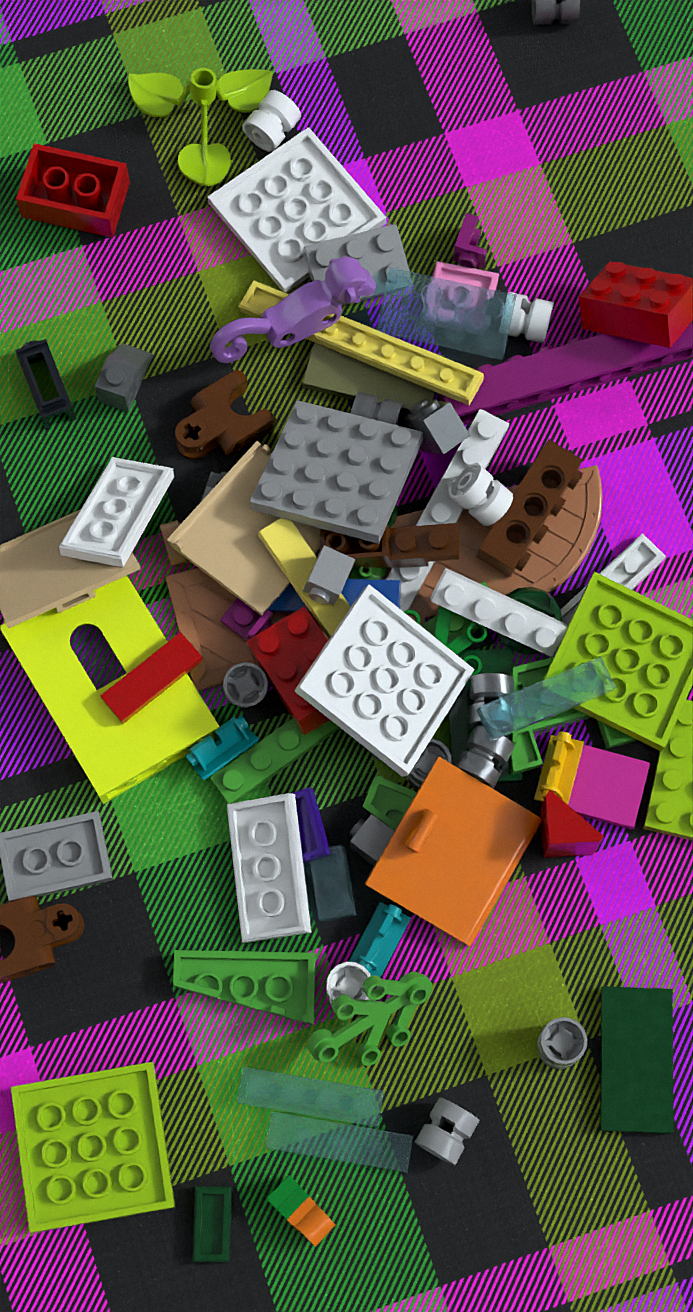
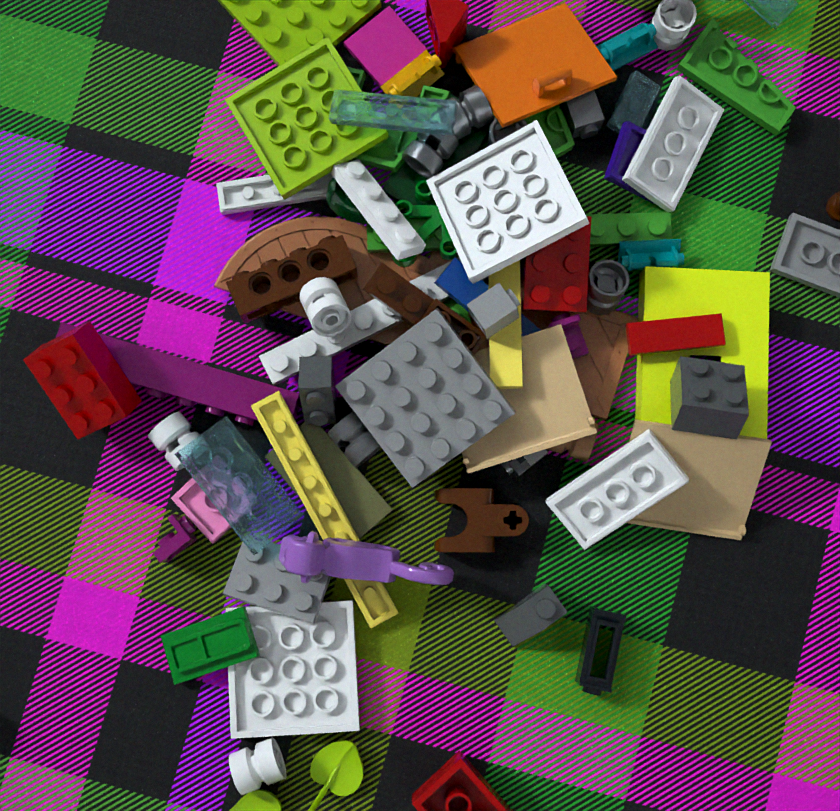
camera: 145 degrees left, 10 degrees up
(87, 626) = (708, 397): none -> dark grey brick
(377, 183) = (210, 645): none -> green piece

